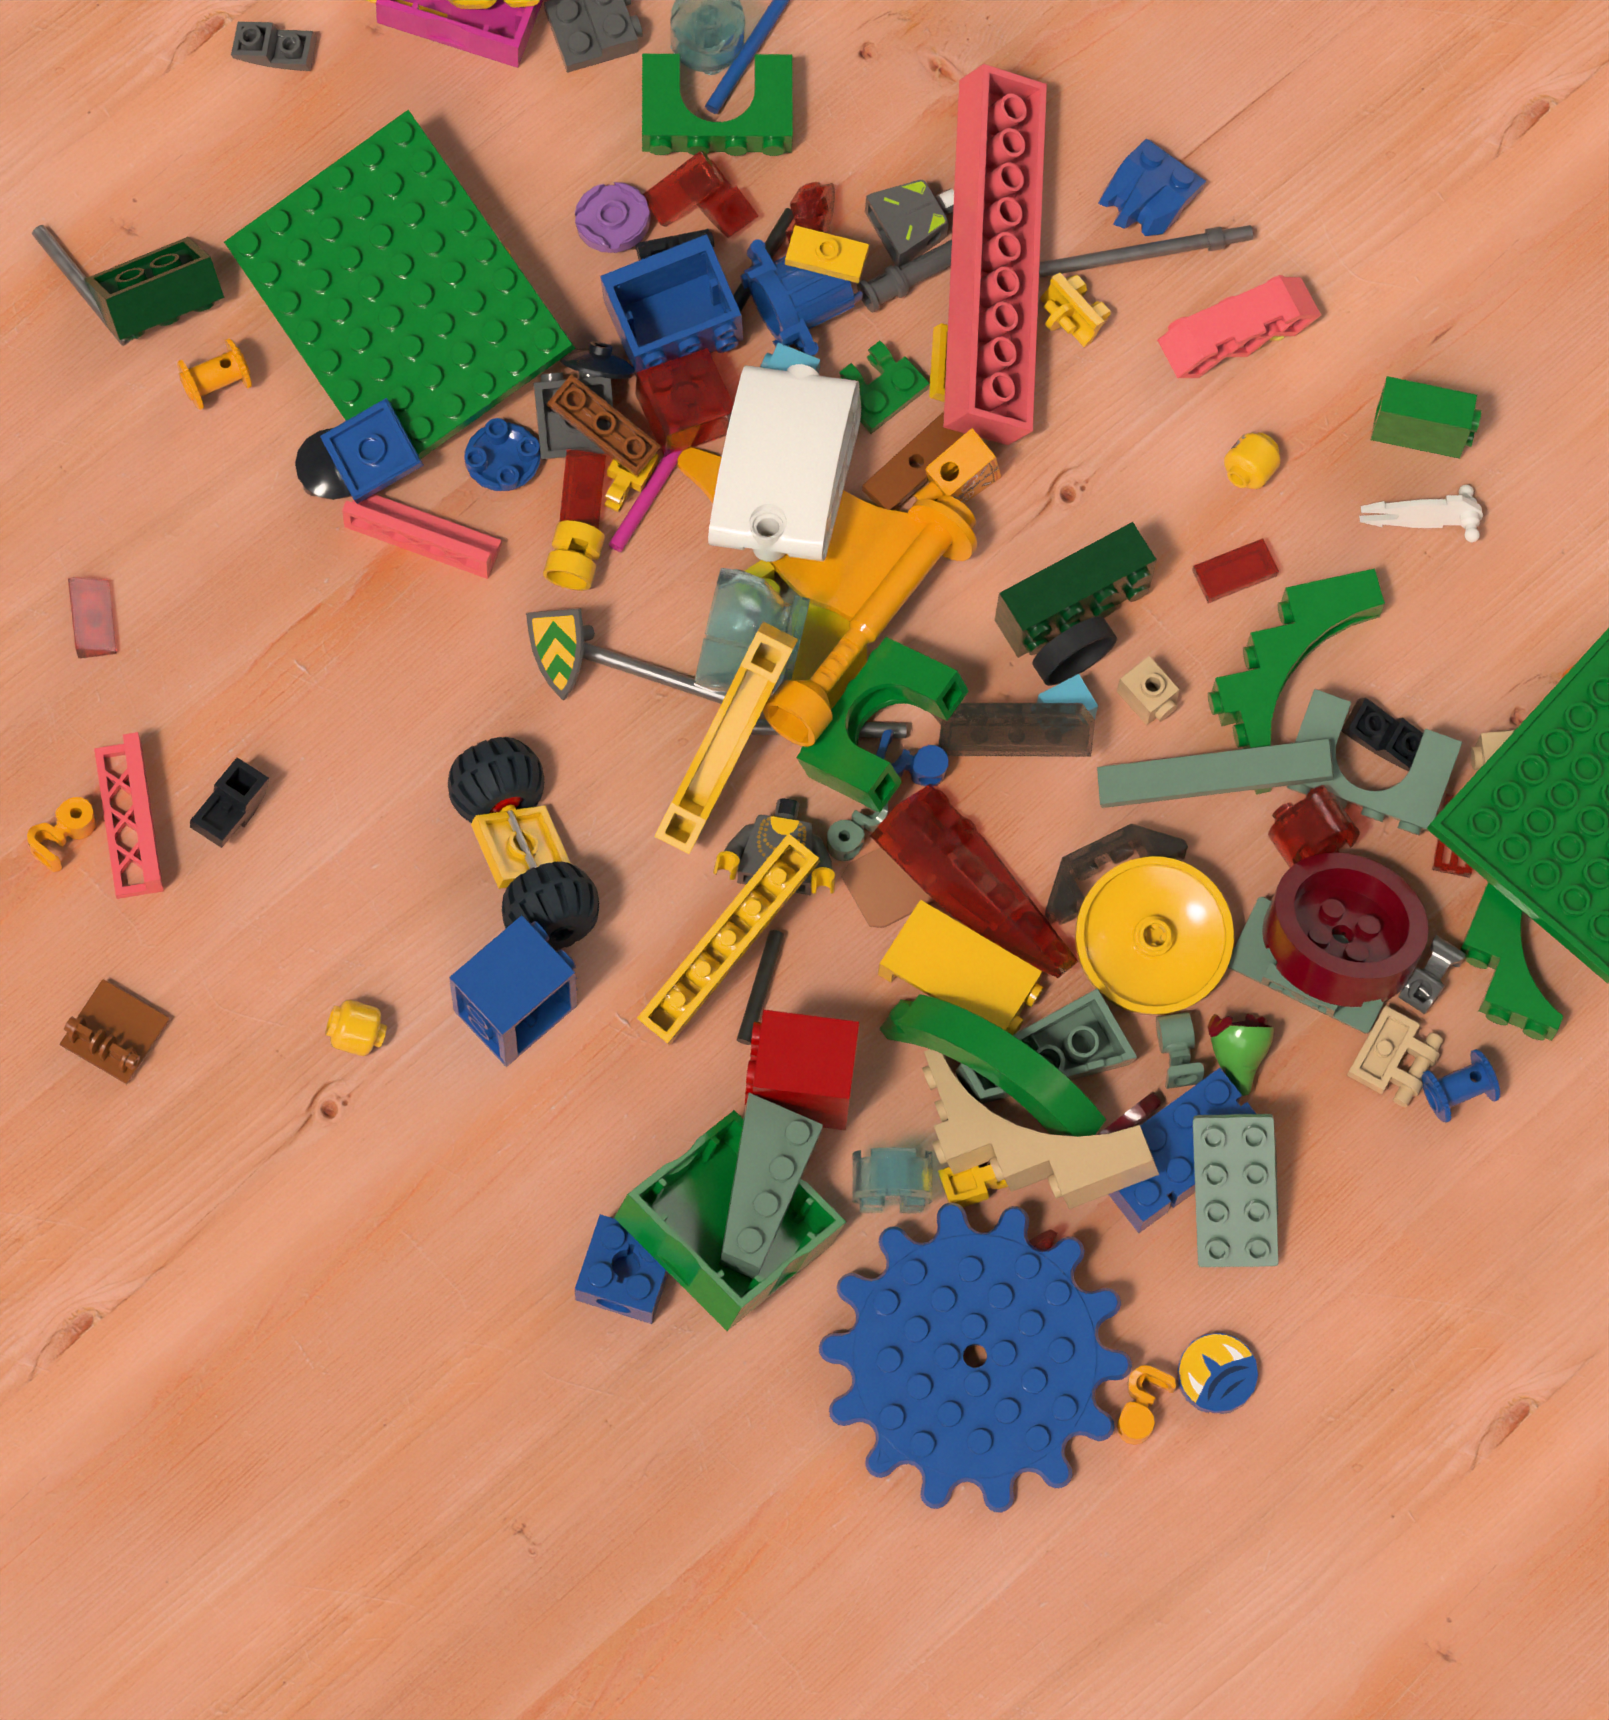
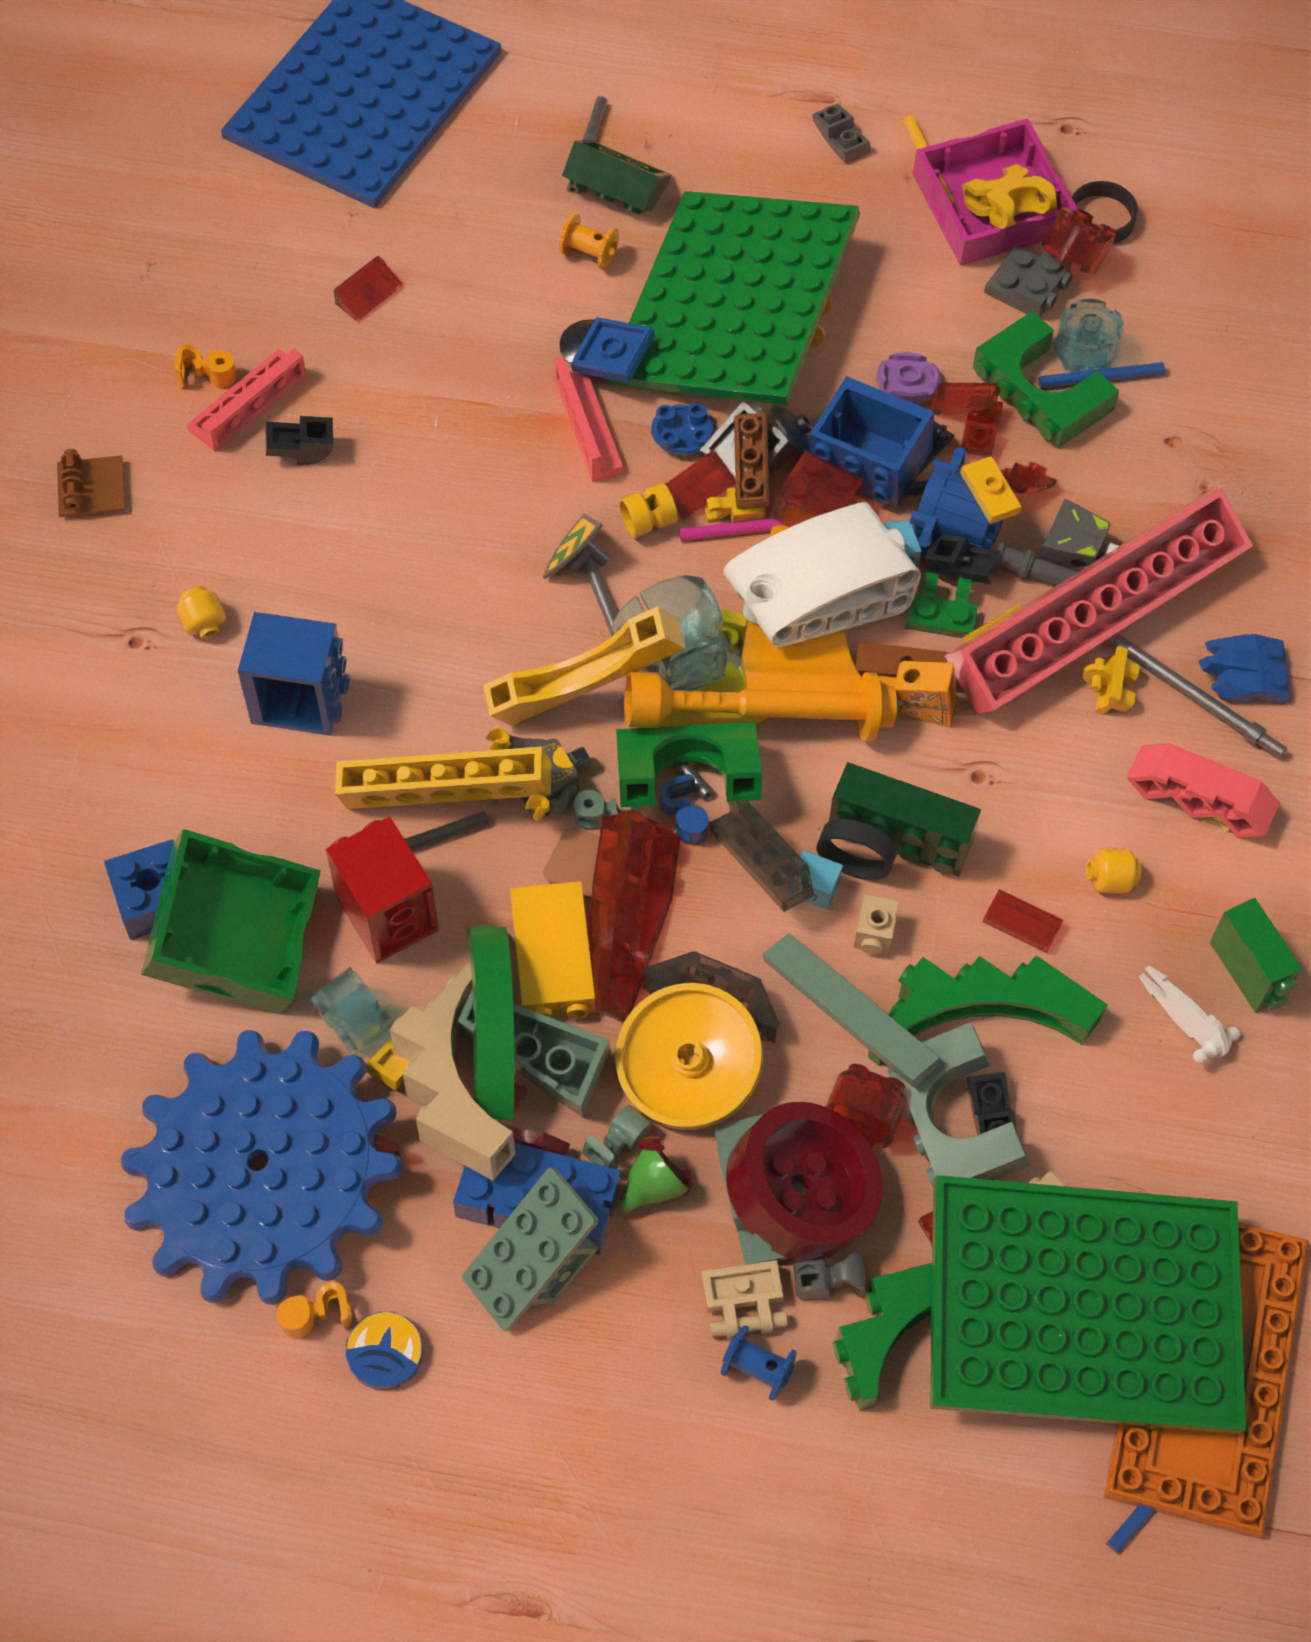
camera: 55 degrees right, 10 degrees down
(498, 793) = (386, 646): black plate -> none
(767, 1172) = (270, 919): sand green wedge -> none
(850, 335) = (955, 558): none -> black brick

